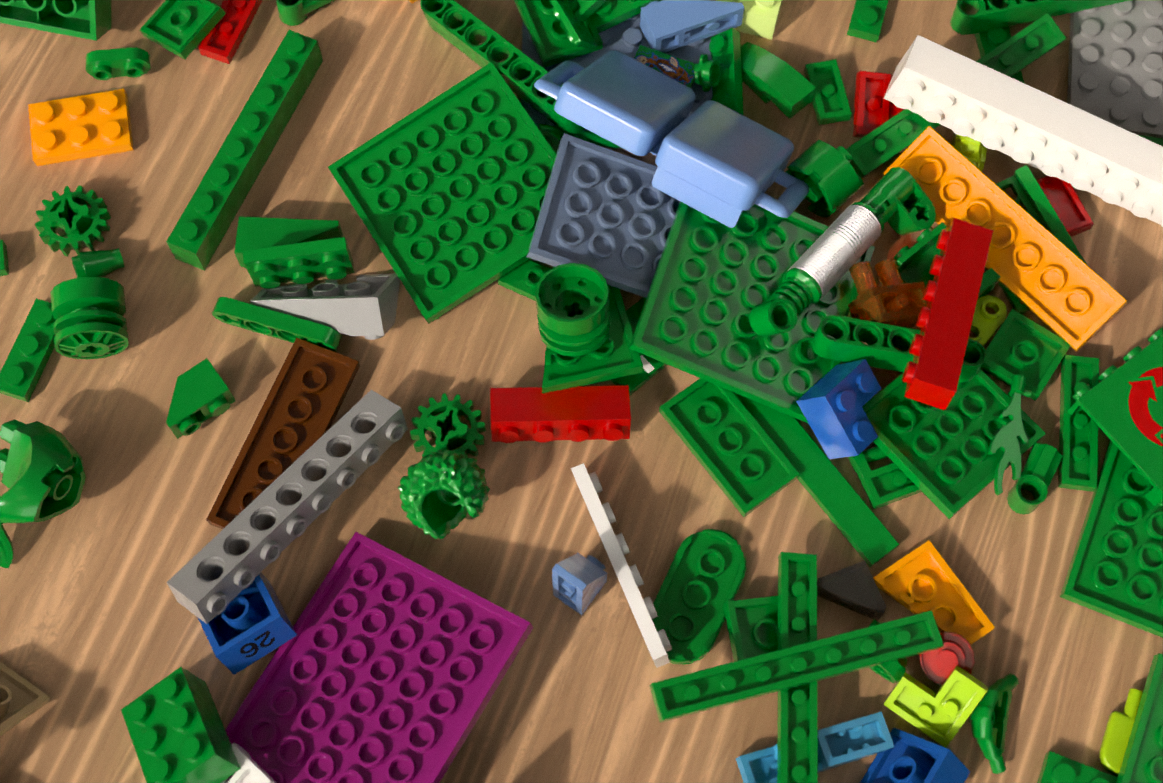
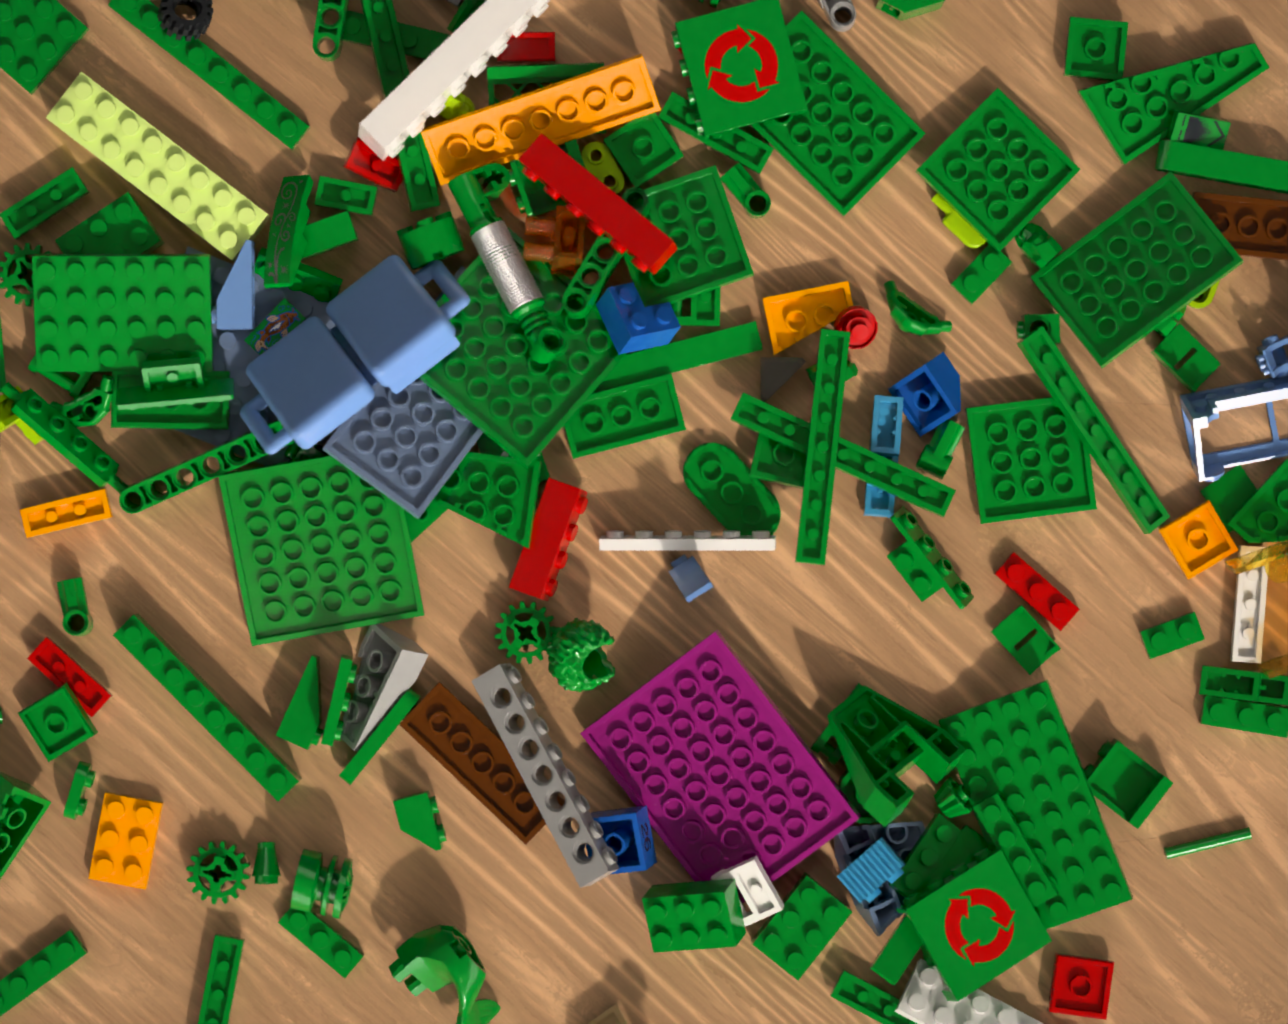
camera: 70 degrees left, 20 degrees up
(573, 309) = (463, 503): green wheel -> none
(707, 73) = (296, 296): green plate -> none
(763, 41) = (286, 236): none -> green slope
(938, 713) = (892, 354): lime plate -> none
(1007, 436) = (708, 200): green piece -> none

